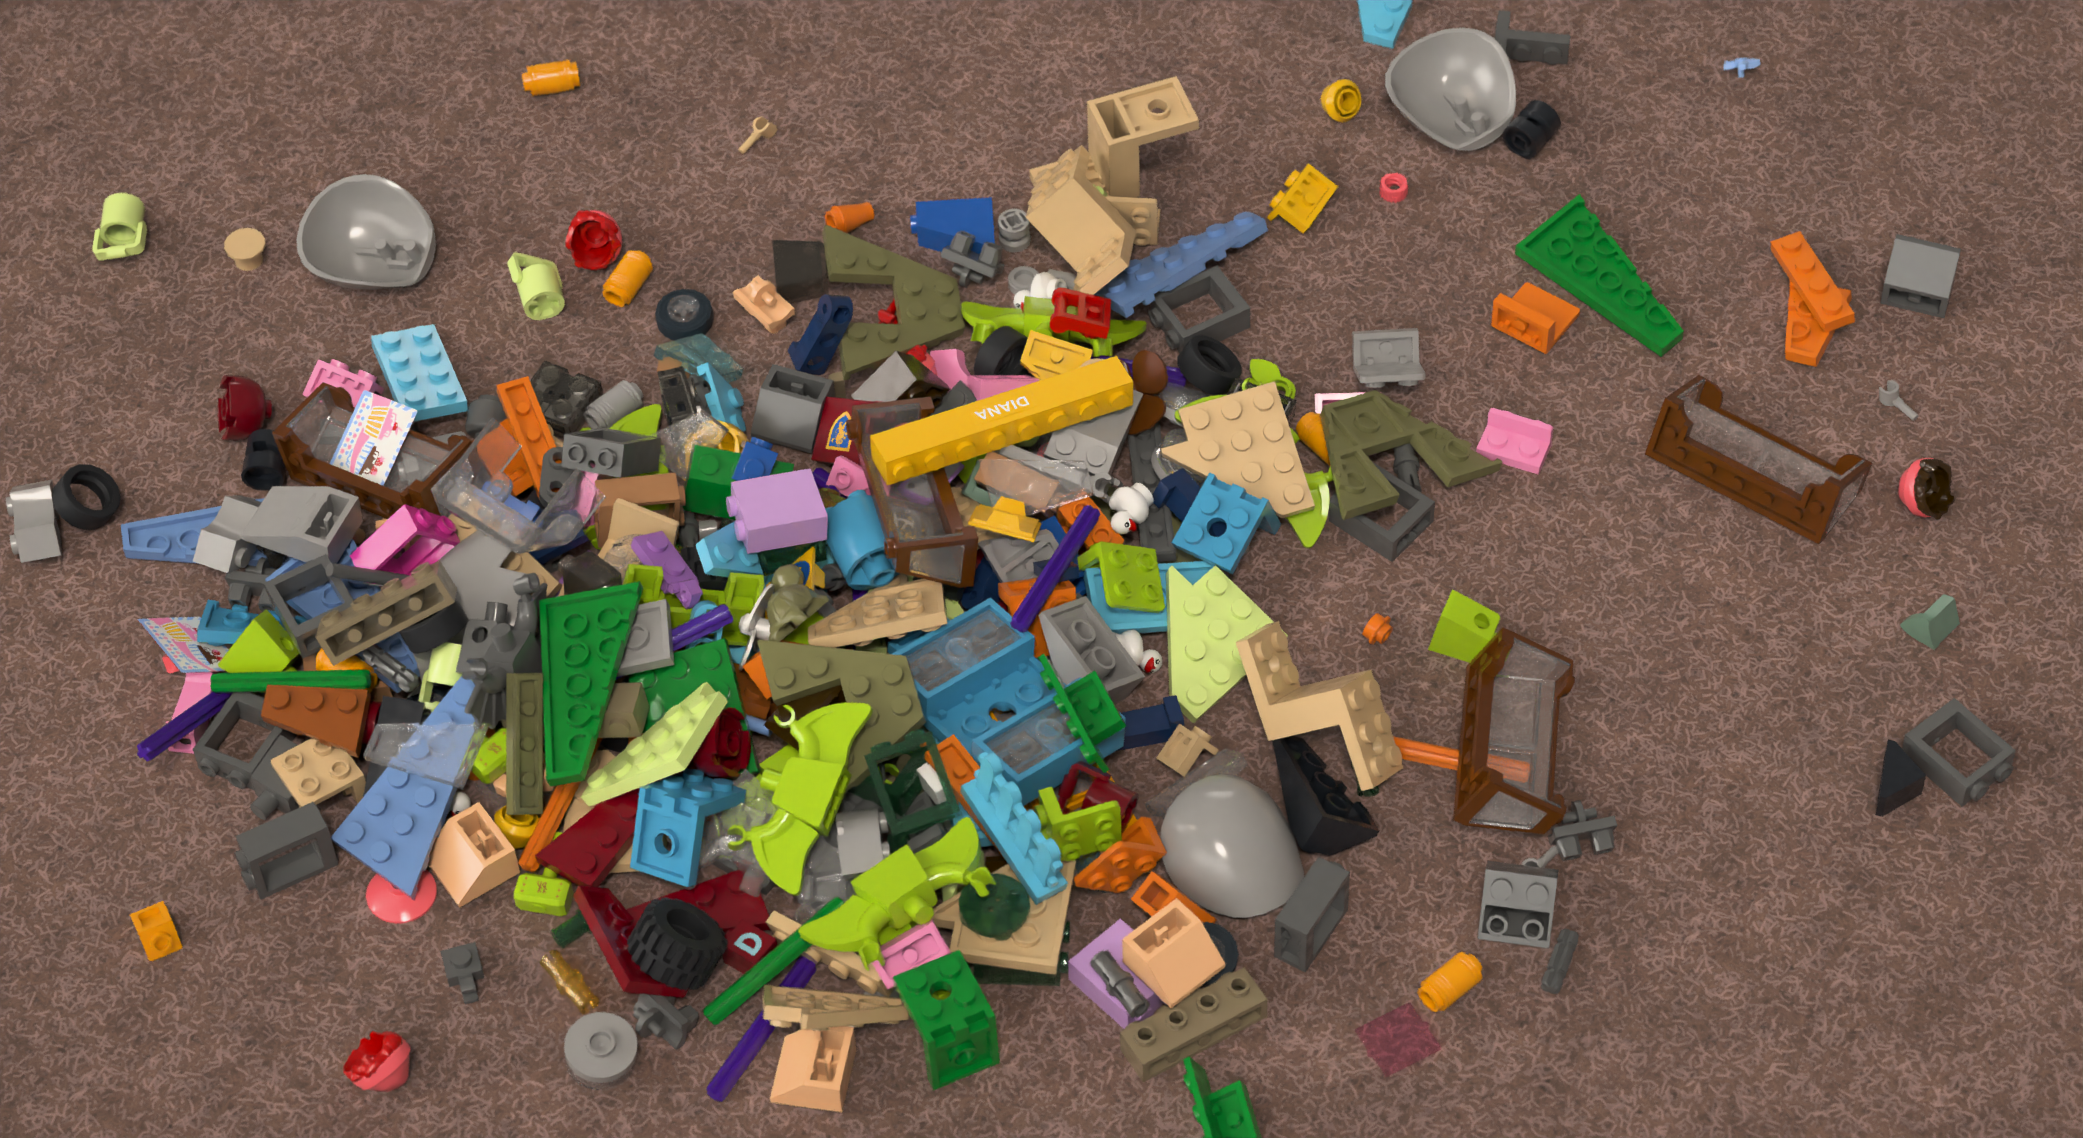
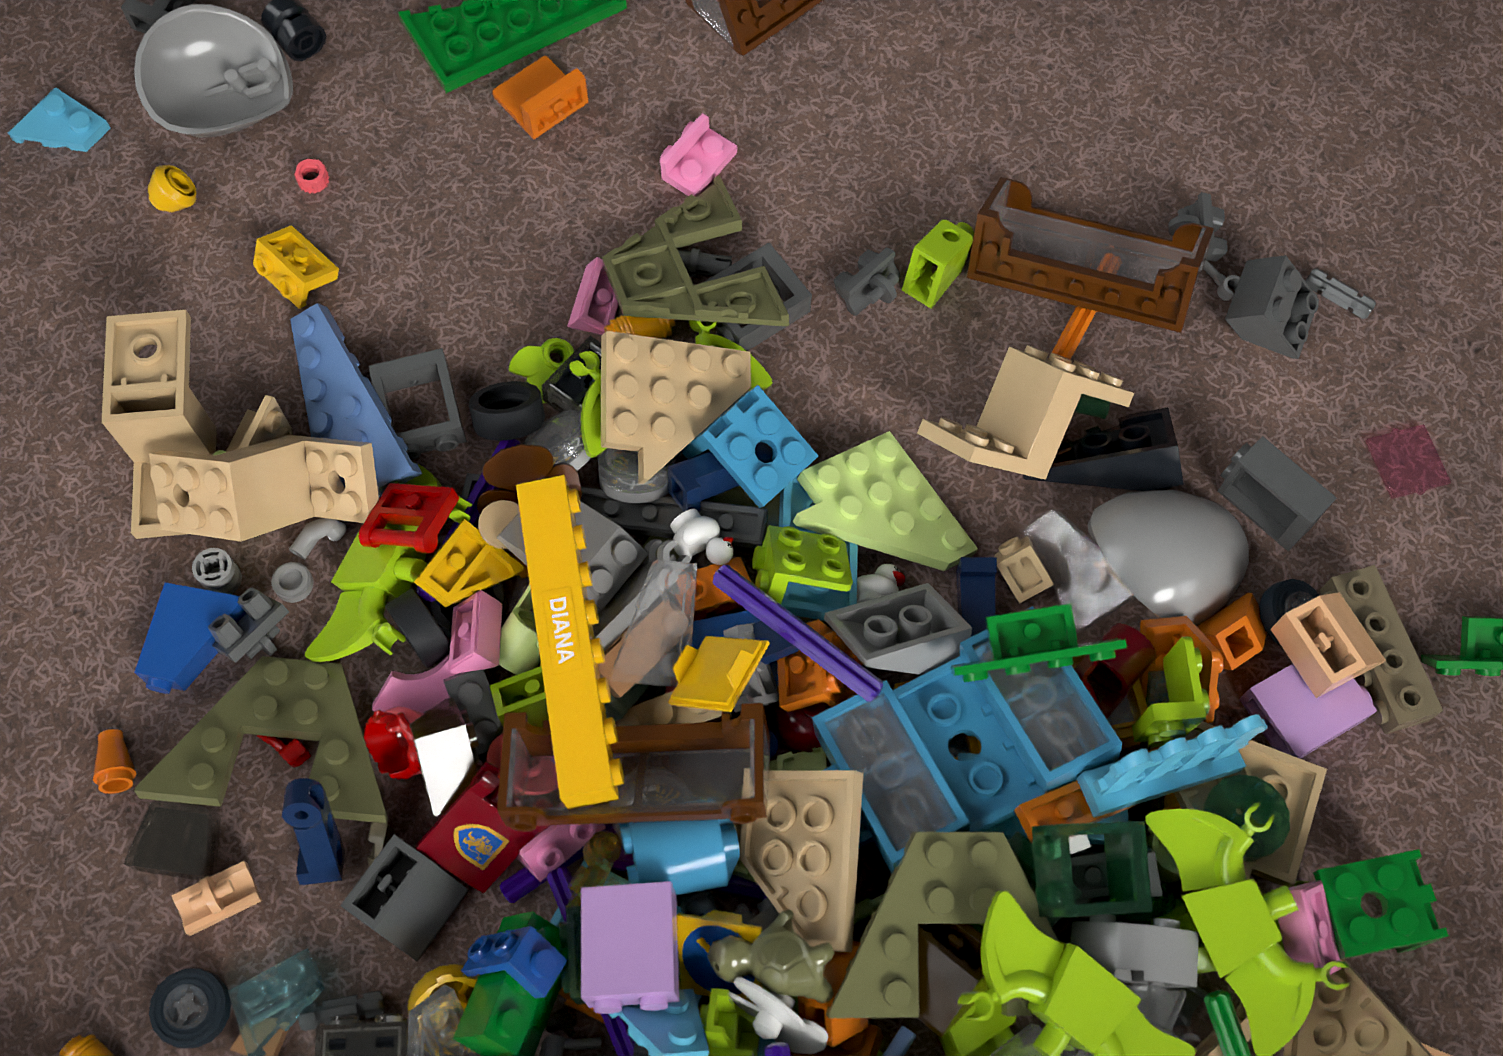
camera: 80 degrees left, 15 degrees up
(724, 400) = (371, 984): medium azure wing -> none
(1041, 287) = (324, 559): white animal -> none
(1120, 984) = (1348, 707): dark grey pin -> none
(1378, 629) = (902, 344): orange plate -> none
(1387, 357) = (557, 242): light grey bracket -> none
(1427, 588) = (872, 282): none -> dark grey hips
(1450, 982) = (1358, 392): light orange head -> none

